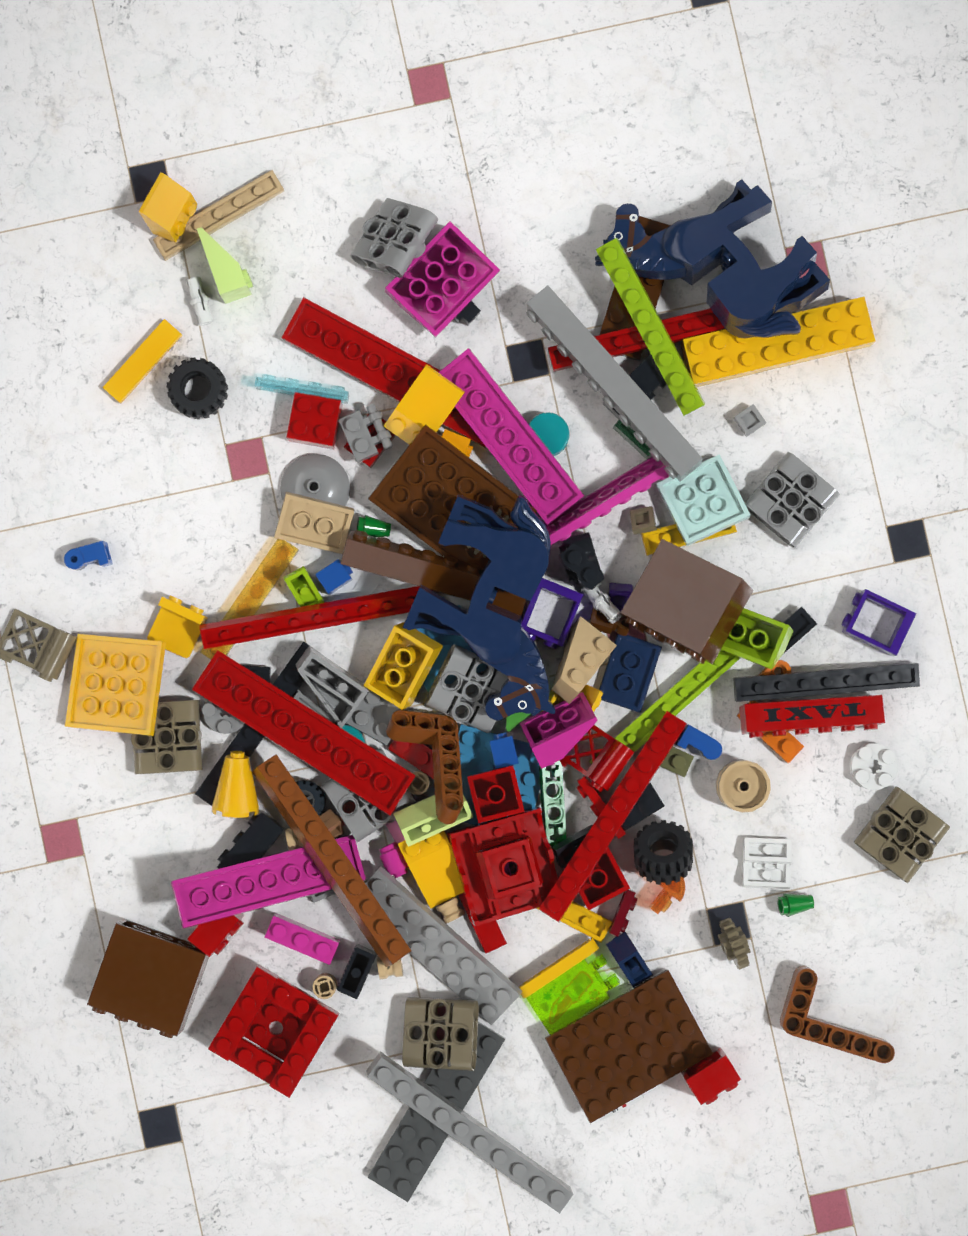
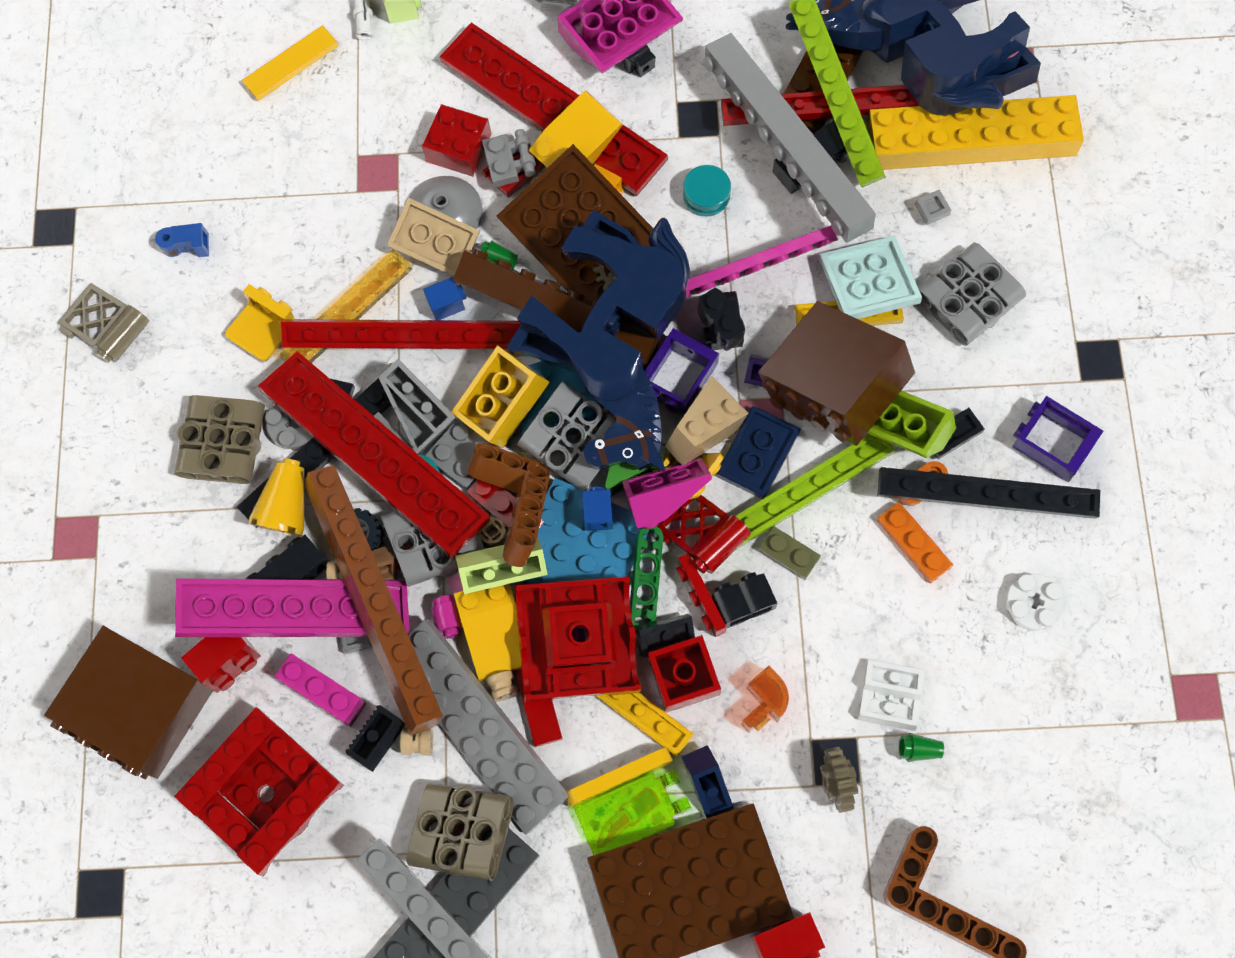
camera: 15 degrees right, 15 degrees down
(115, 684) = (176, 371): yellow plate -> none
(192, 369) = (337, 74): black tyre -> none
(290, 386) = (427, 103): clear light blue plate -> none
(303, 587) = (406, 299): lime slope -> none
(328, 983) = (337, 756): tan wheel -> none
(495, 794) = (578, 550): red brick -> none
(511, 439) = (667, 181): dark pink plate -> none
(602, 602) = (739, 369): white pin -> none
(603, 625) = (743, 391): reddish brown plate -> none
(612, 816) = (711, 604): red plate -> none
(619, 921) = (702, 733): dark red plate -> none
(627, 434) = (800, 206): clear green tile -> none
(643, 520) = (798, 291): dark tan plate -> none
(667, 867) = (767, 654): black tyre -> none
(708, 746) = (830, 539): blue leg -> none
(729, 783) = (882, 580): tan wheel -> none
(812, 715) = (967, 526): red brick -> none
(928, 825) = (1059, 655): dark tan connector -> none

